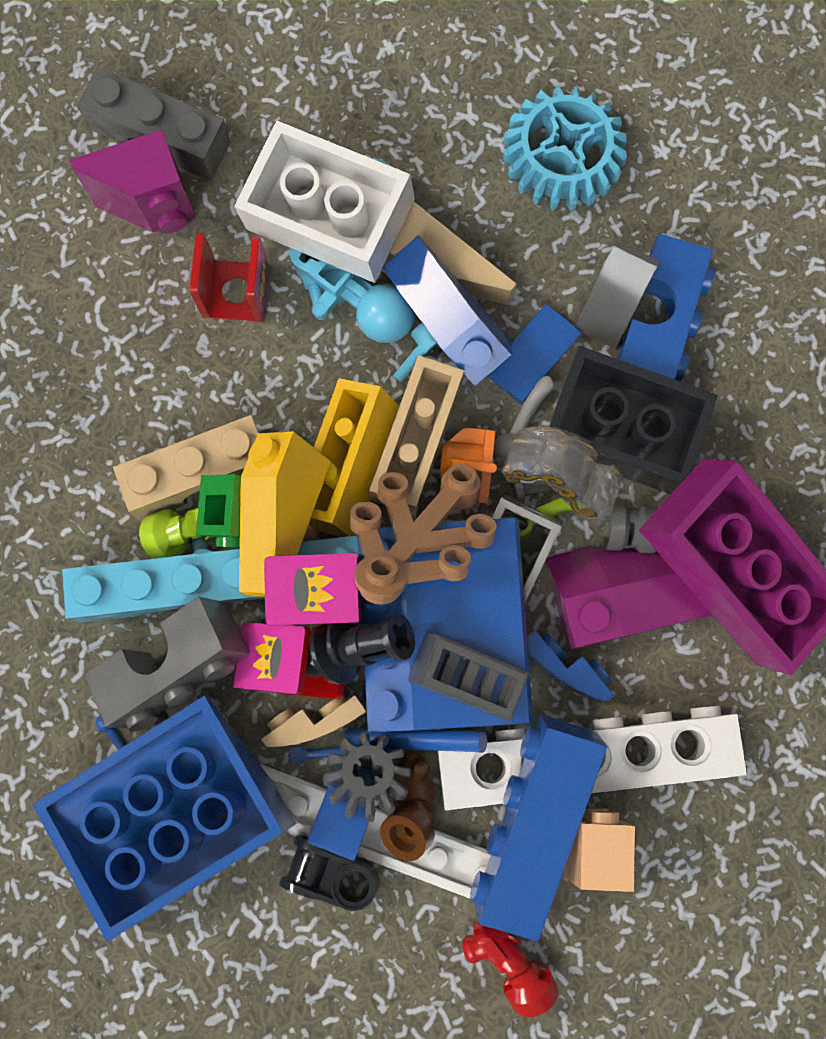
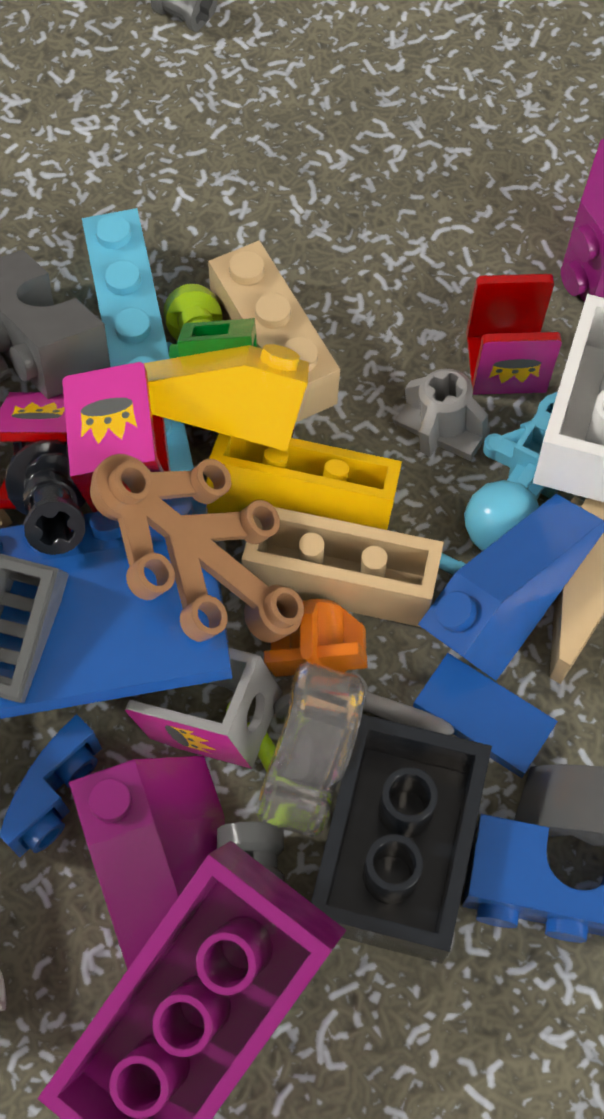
camera: 85 degrees right, 15 degrees down
(286, 344) = (444, 414): none -> light grey piece

